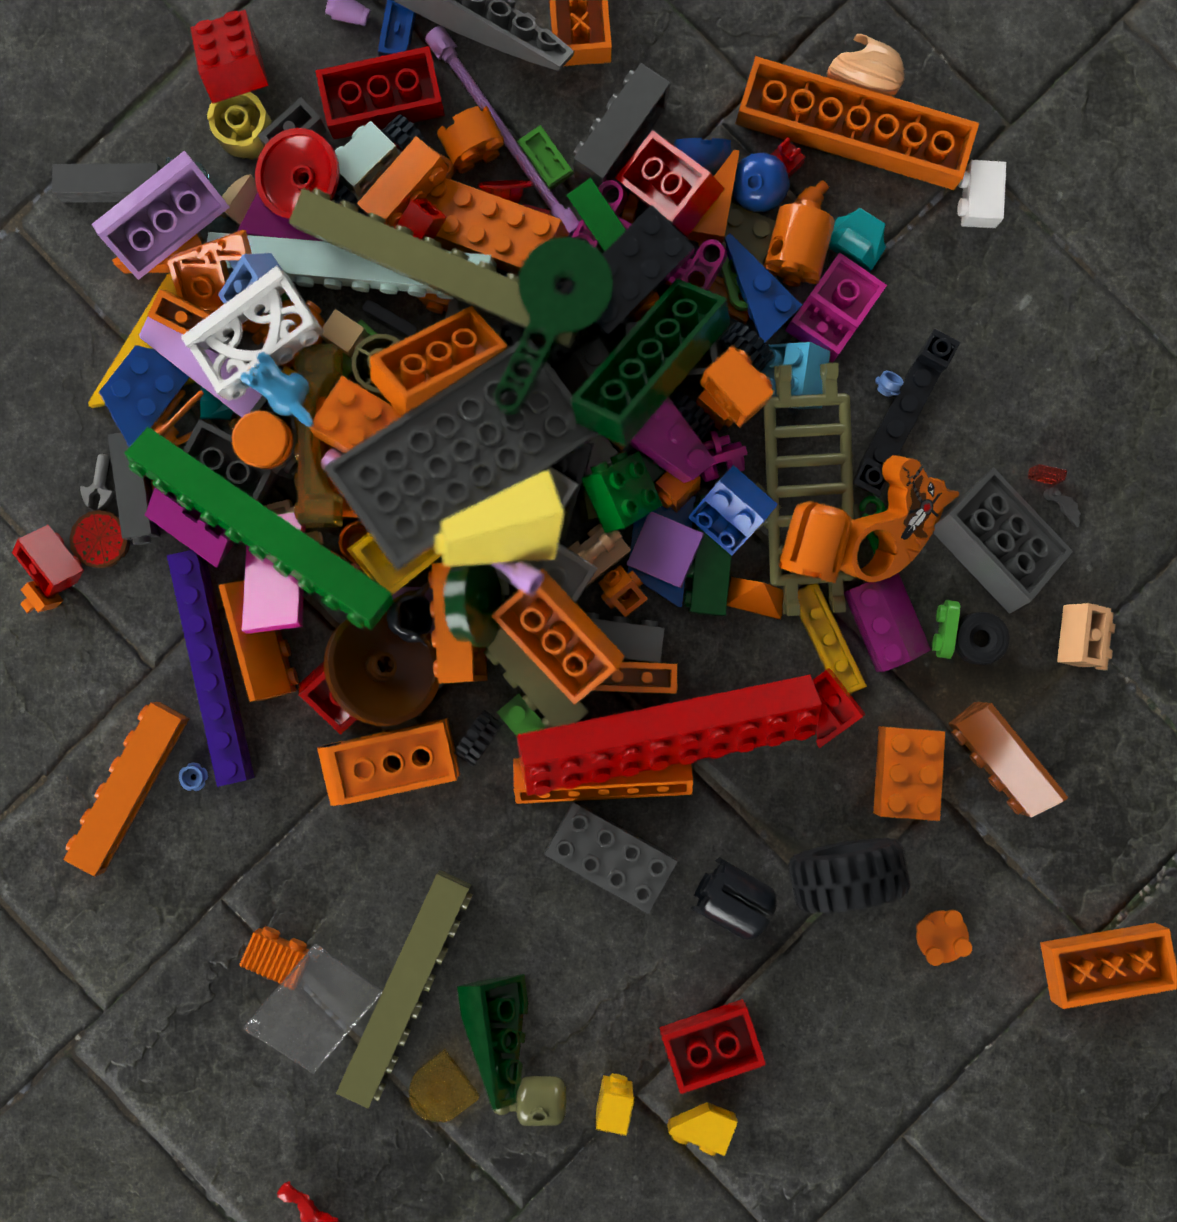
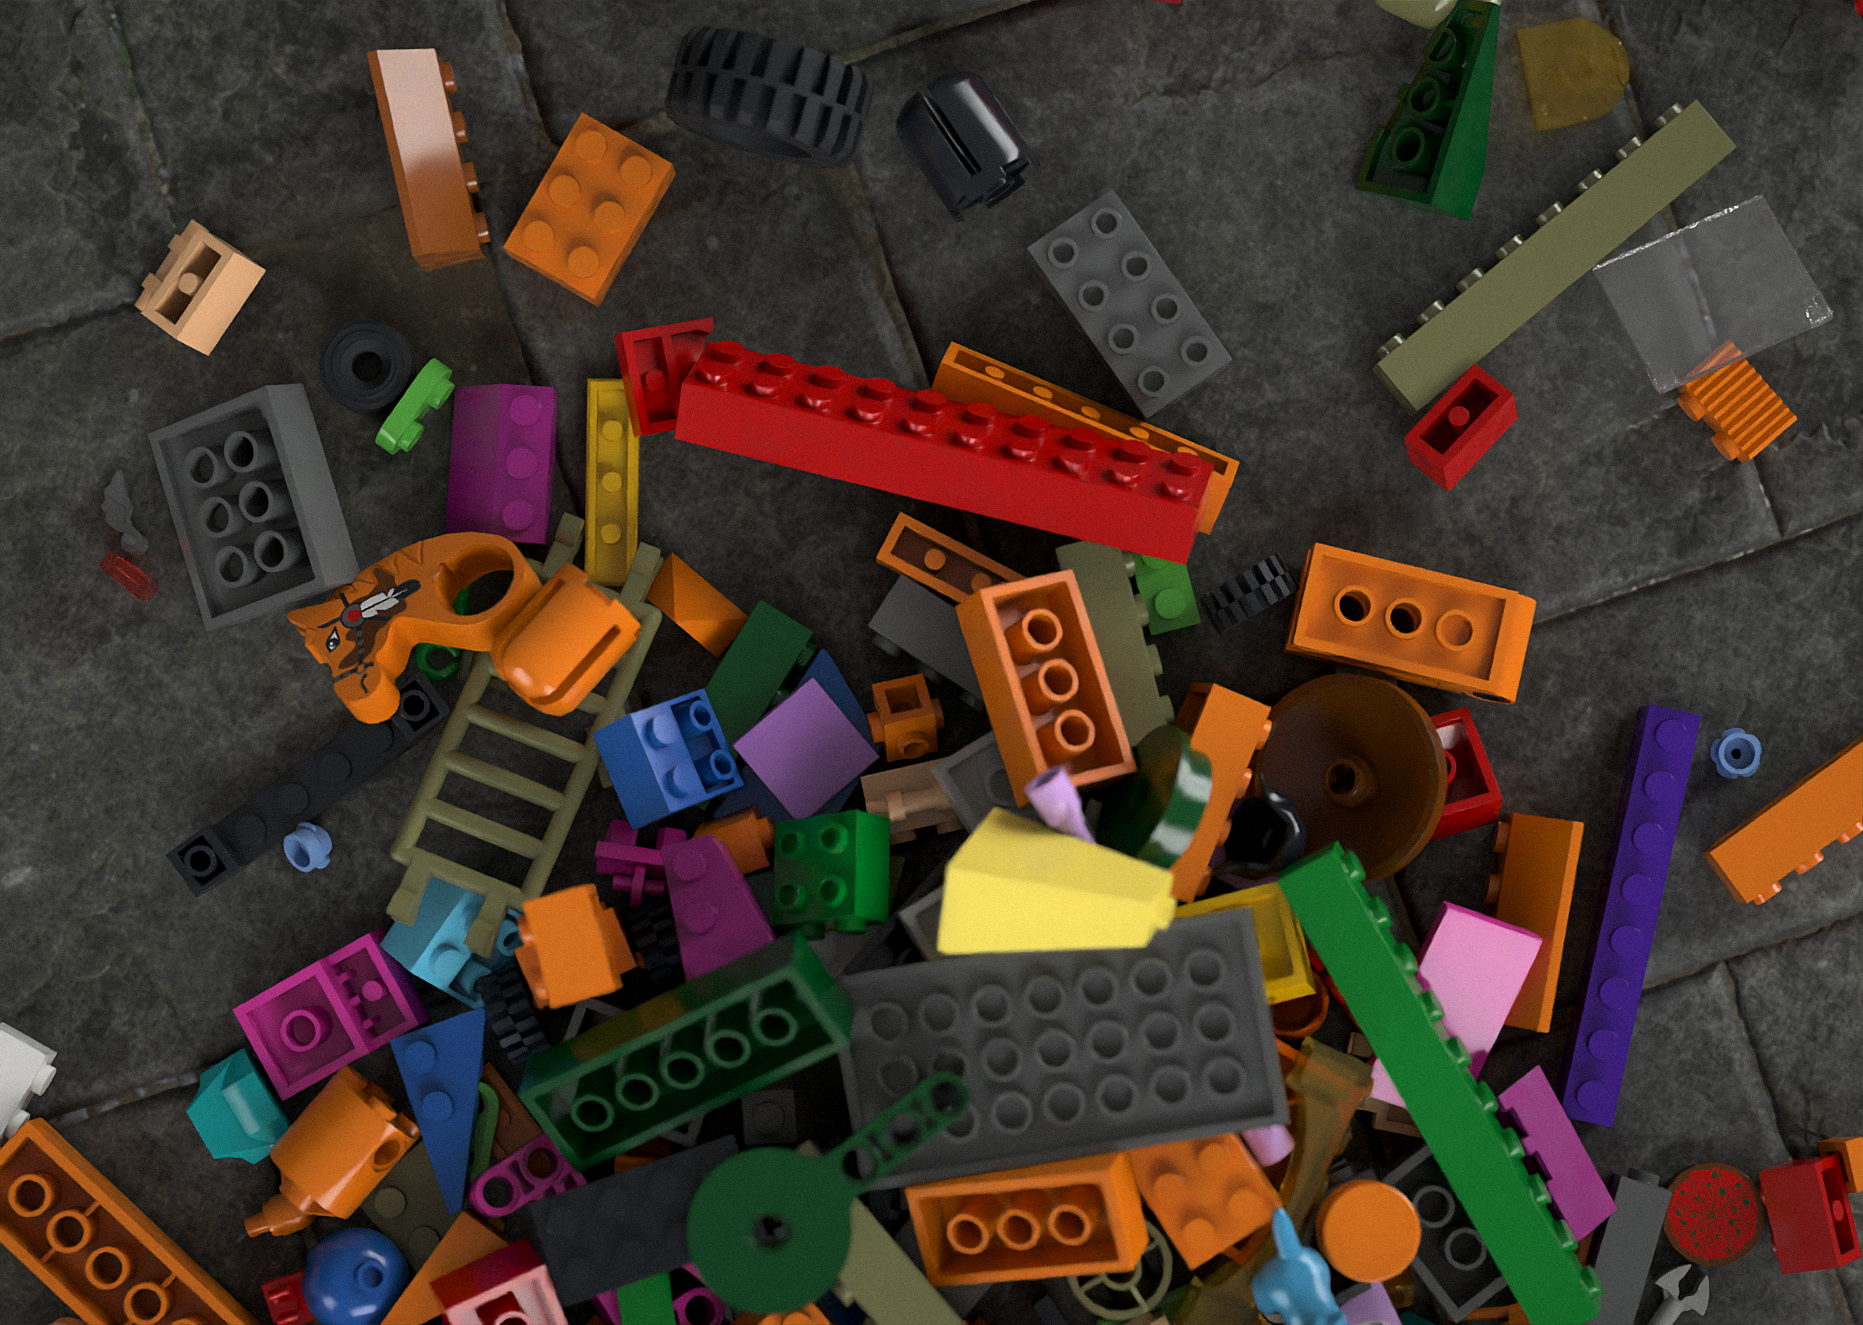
camera: 150 degrees left, 0 degrees up
(410, 876) = (1461, 427): none -> red brick

